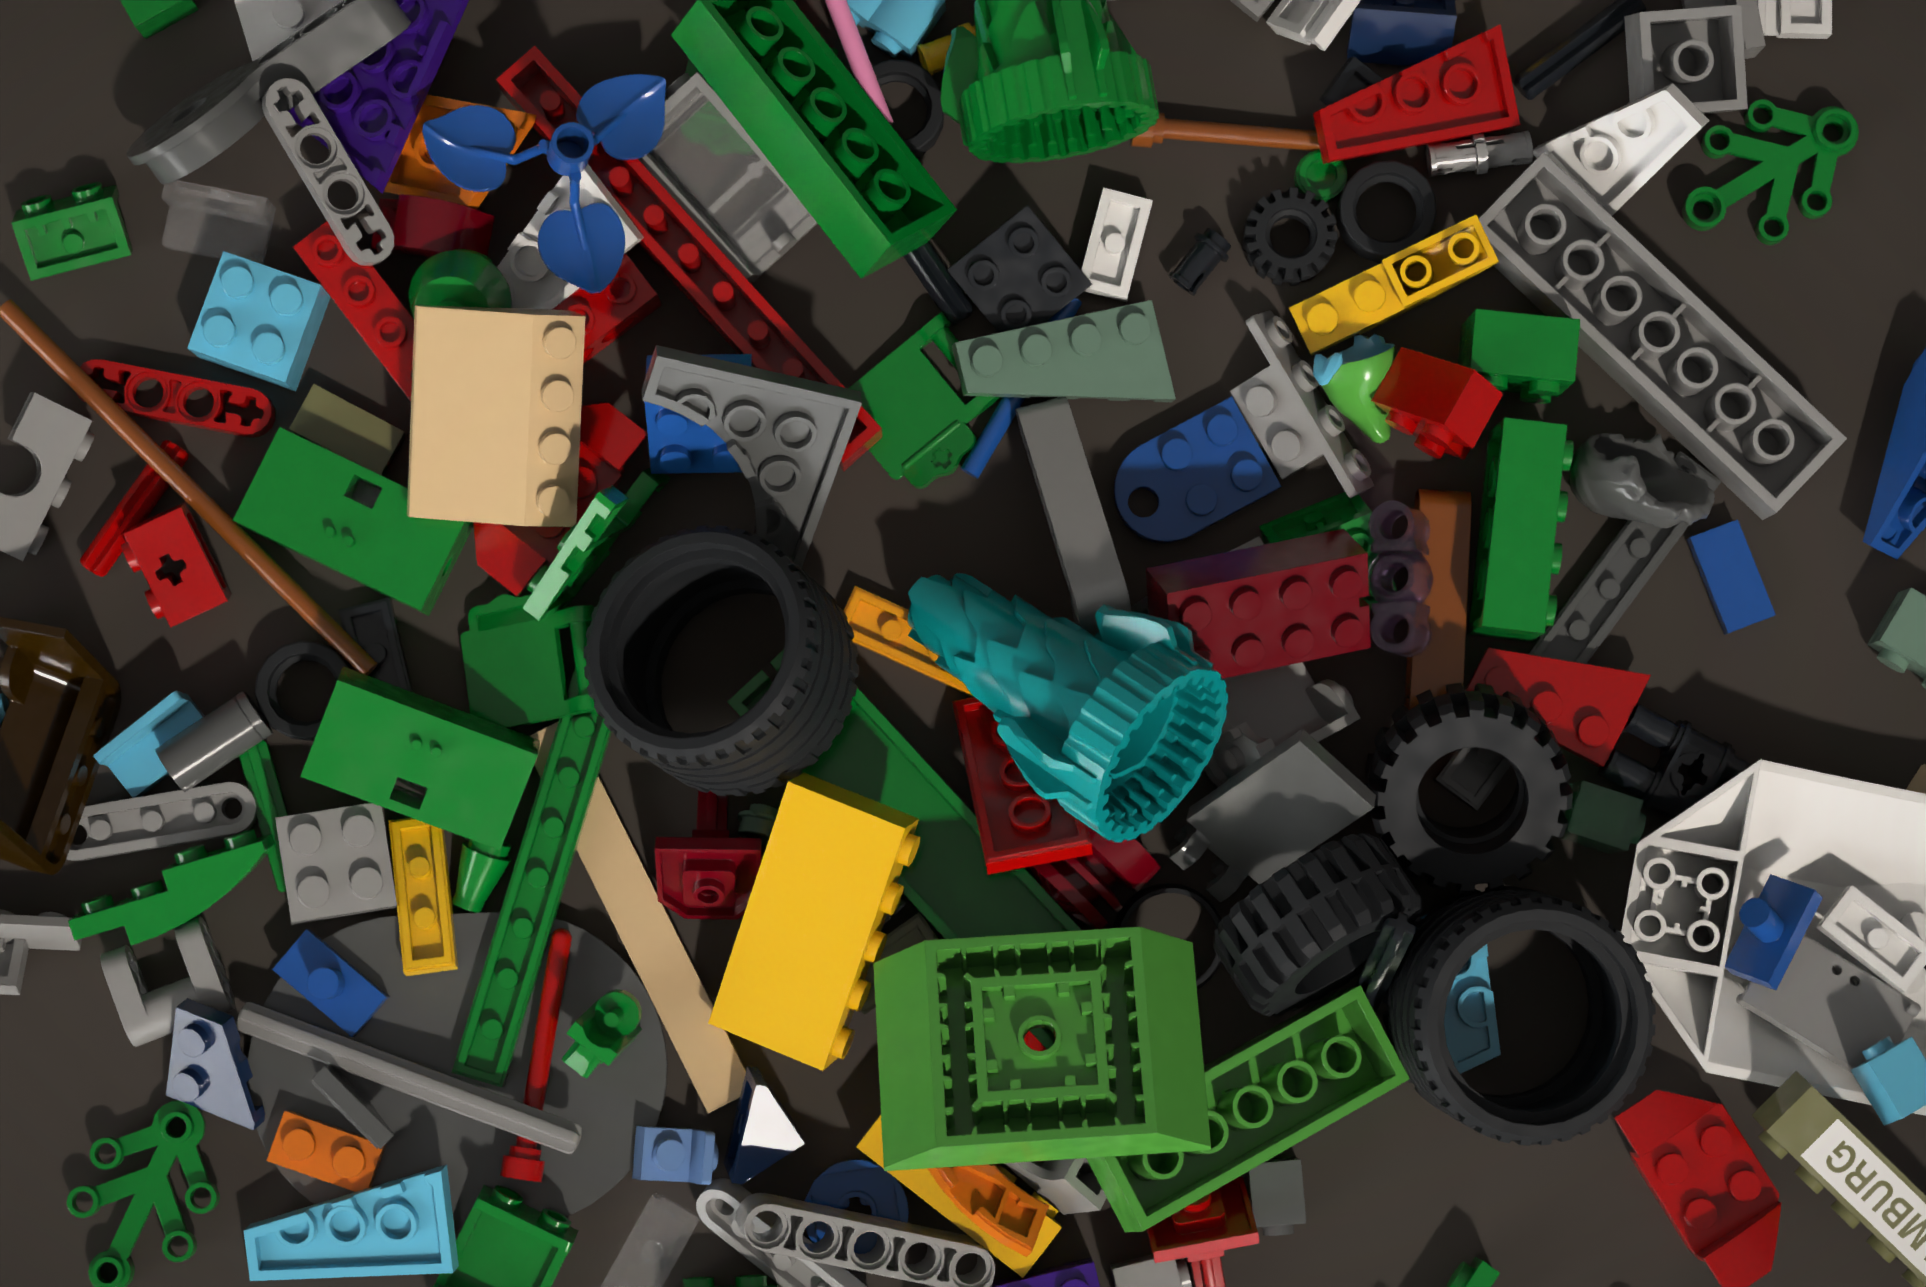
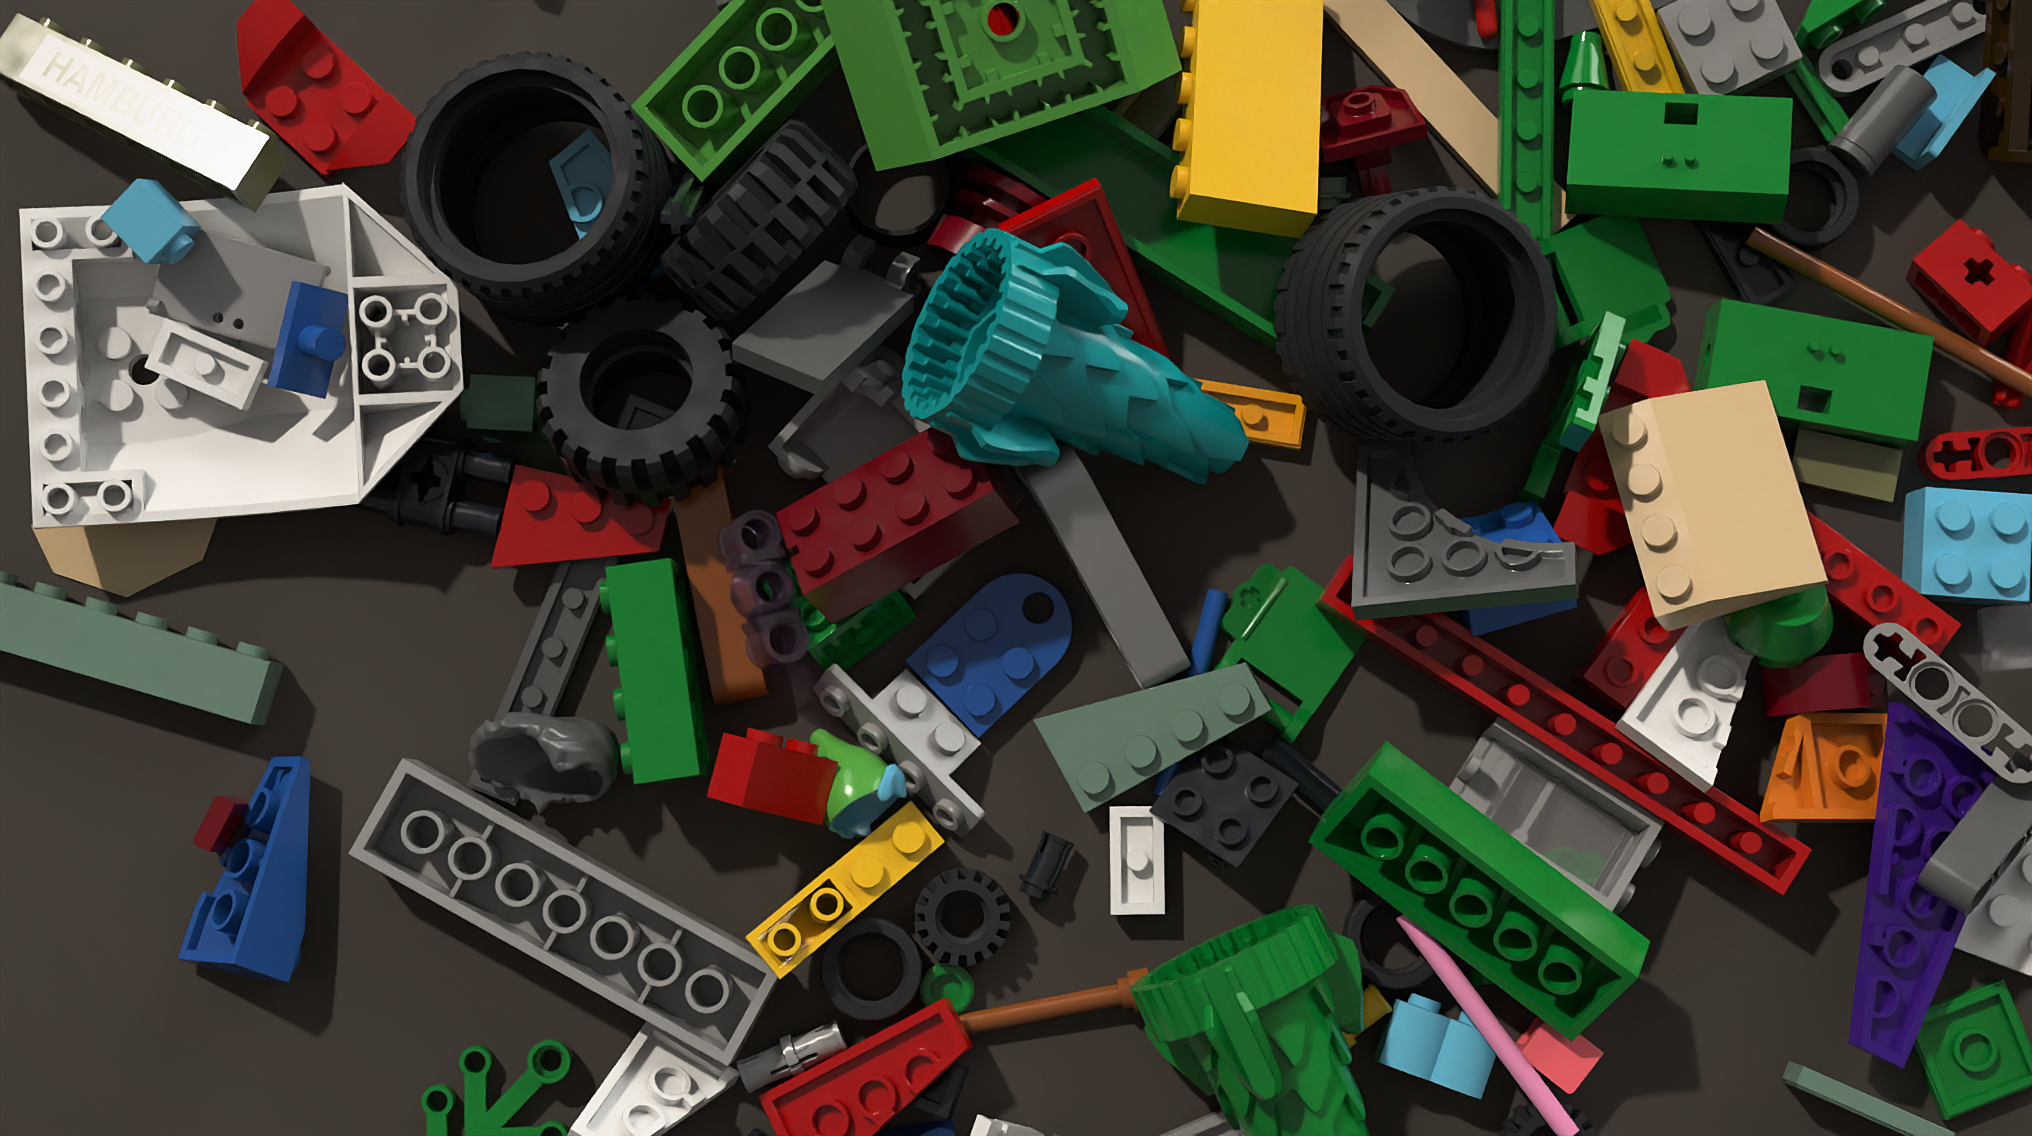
camera: 175 degrees right, 0 degrees up
(577, 244) = (1677, 696): blue plant -> none
(1521, 352) = (702, 852): green brick -> none
(1731, 577) = (434, 693): blue tile -> none

